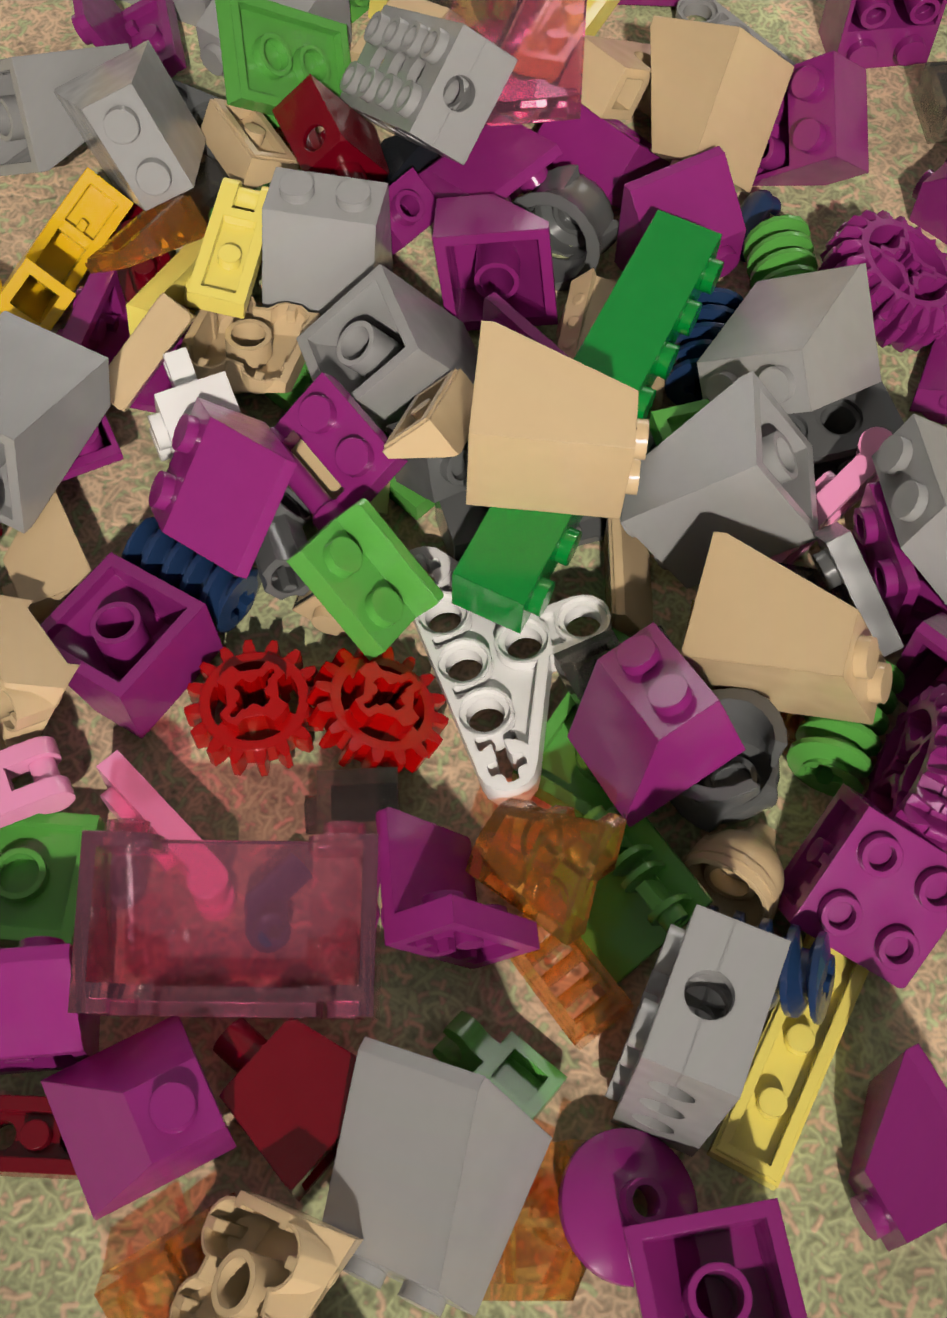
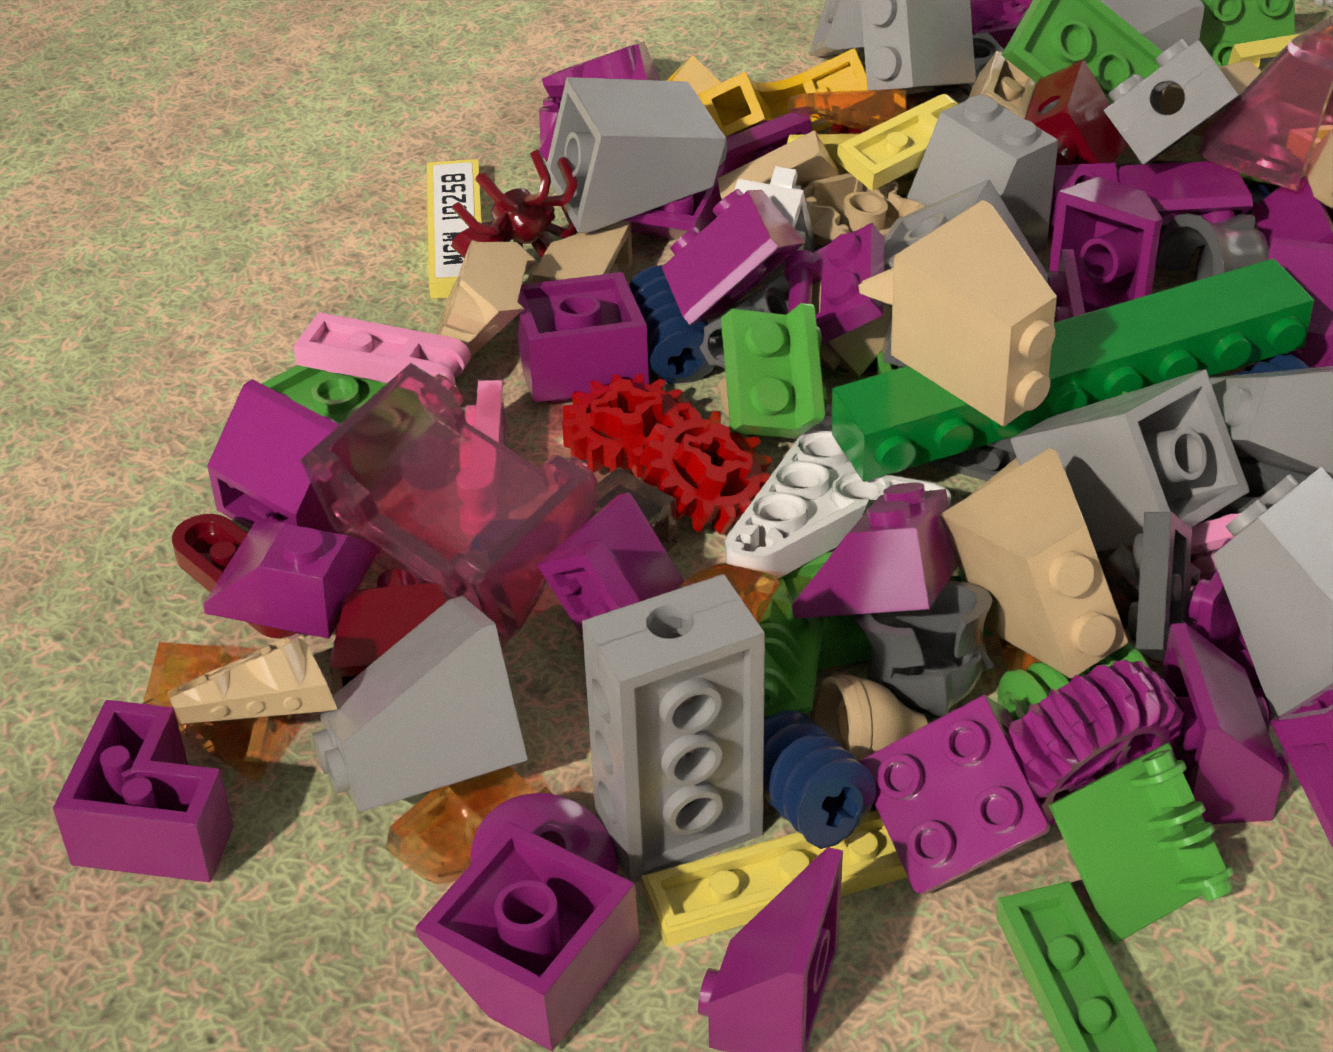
camera: 45 degrees right, 20 degrees down
(509, 1065) = (550, 729): bright green plate -> none

